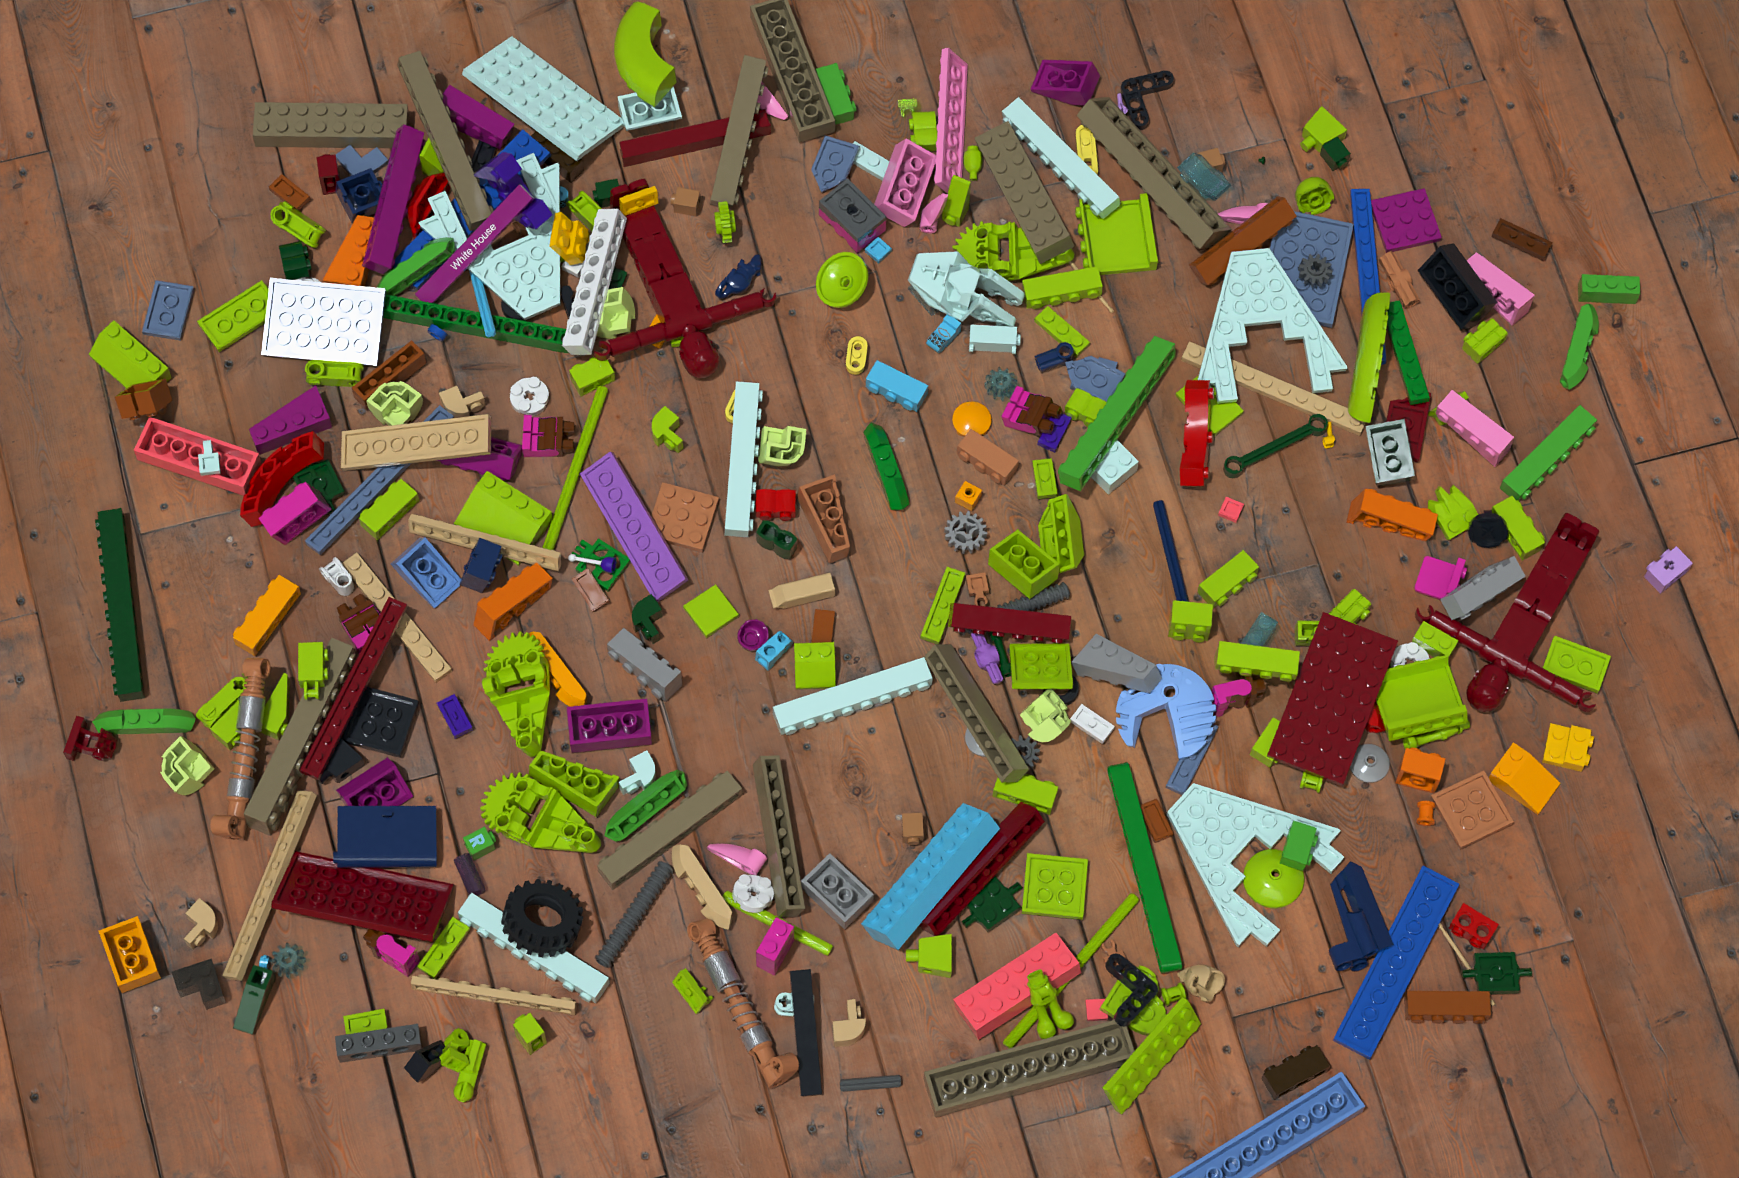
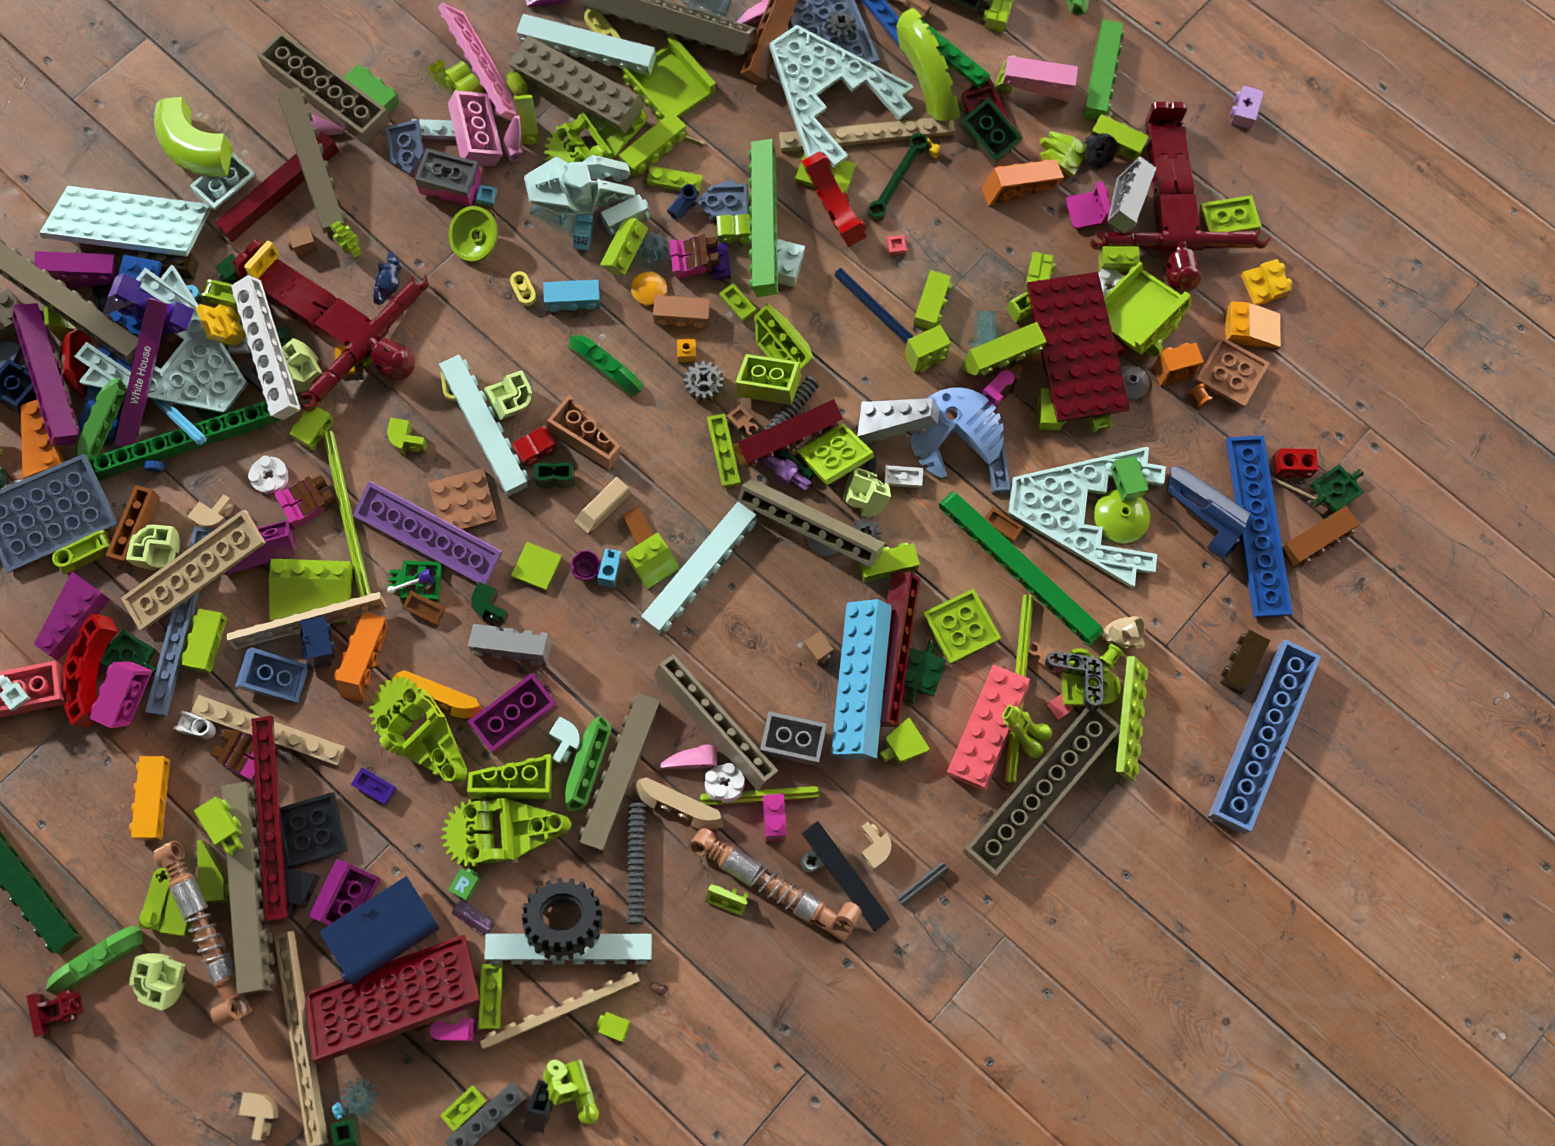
camera: 35 degrees left, 5 degrees up
(971, 368) = (624, 246): none -> lime brick

